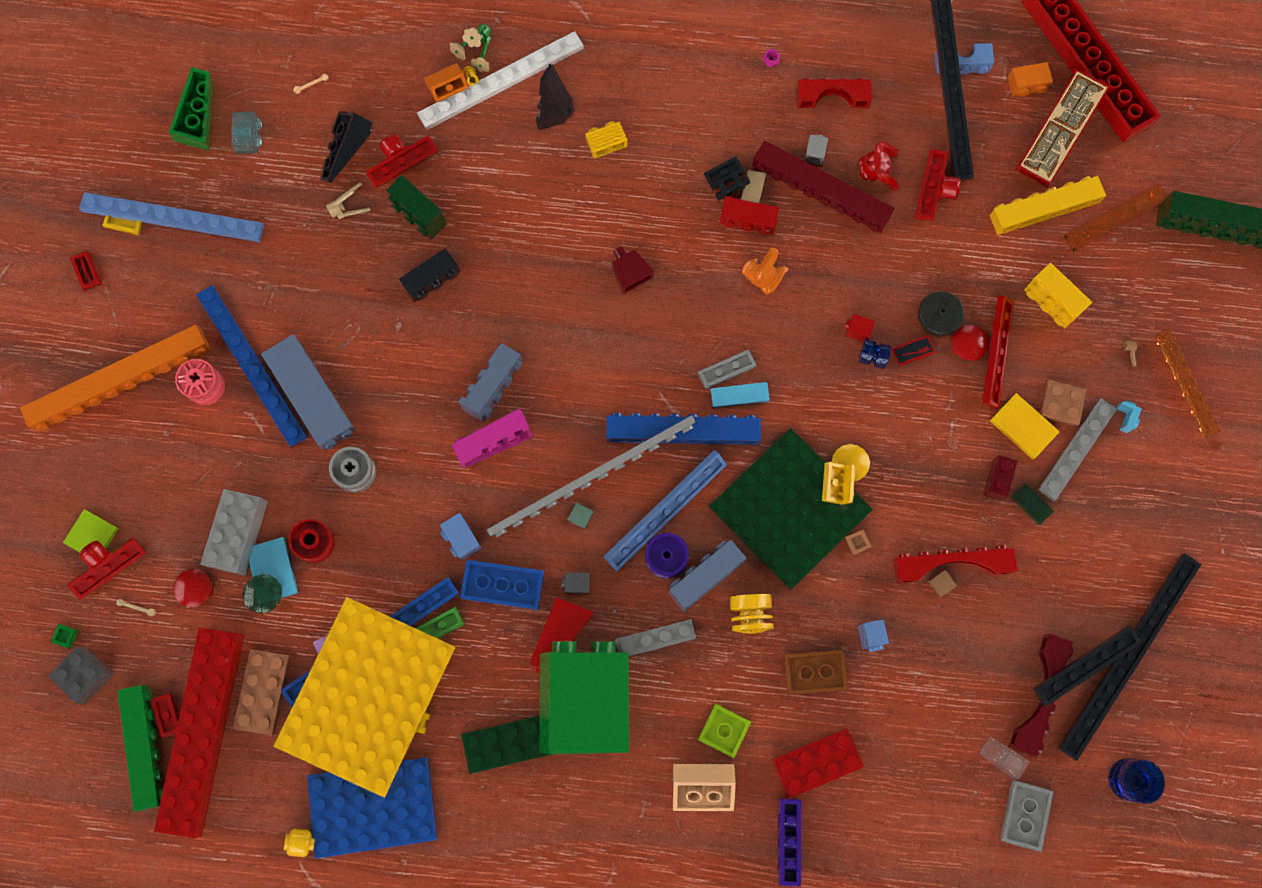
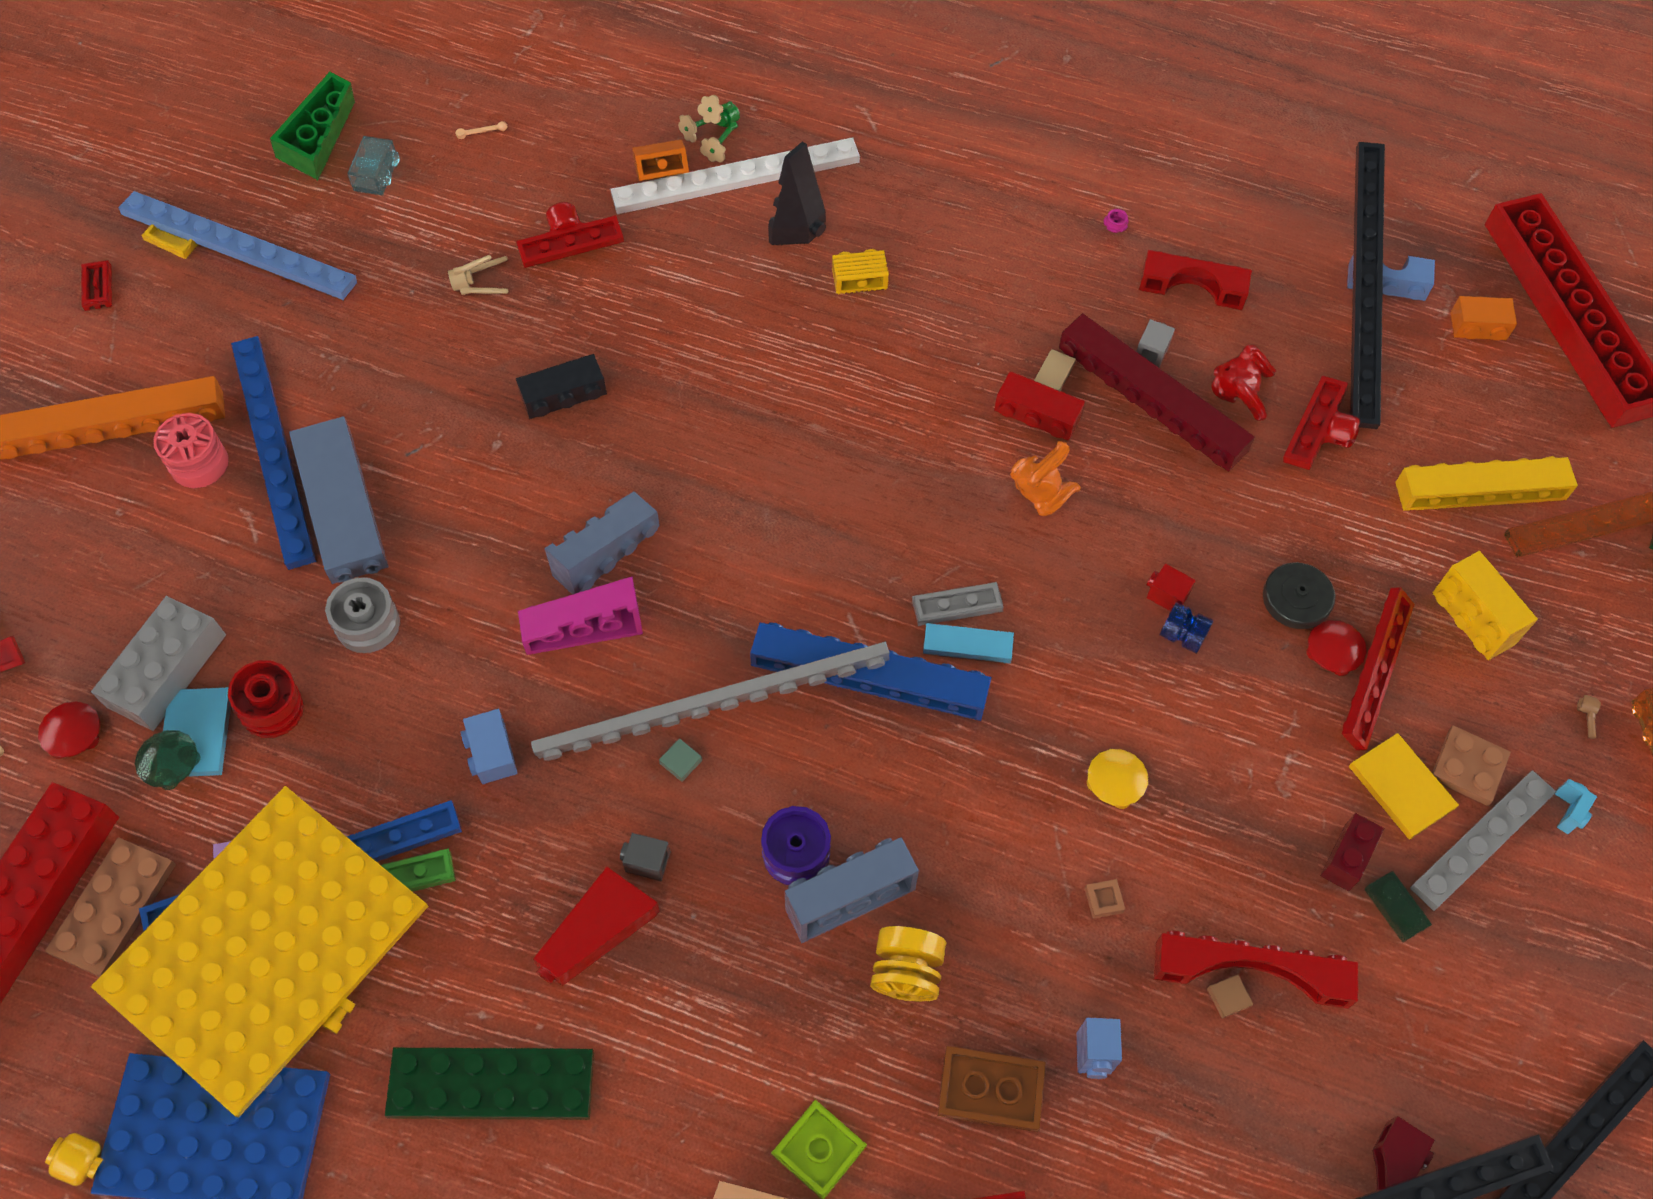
camera: 10 degrees right, 15 degrees down
(349, 134) = (509, 193): black wedge -> none
(416, 207) = (569, 296): dark green brick -> none
(470, 75) = (694, 165): yellow pin -> none
(502, 584) = (531, 832): blue plate -> none
(584, 699) = (601, 1034): green brick -> none
(630, 270) = (849, 440): dark red torso -> none
(656, 638) = (745, 973): light grey plate -> none
(665, 510) = (811, 780): medium blue plate -> none
(724, 174) = (1017, 346): black plate -> none
(781, 510) = (1008, 826): dark green plate -> none
(838, 483) = (1091, 798): yellow bracket -> none
(913, 351) = (1247, 637): black slope -> none
(1062, 128) = (1522, 384): brick -> none

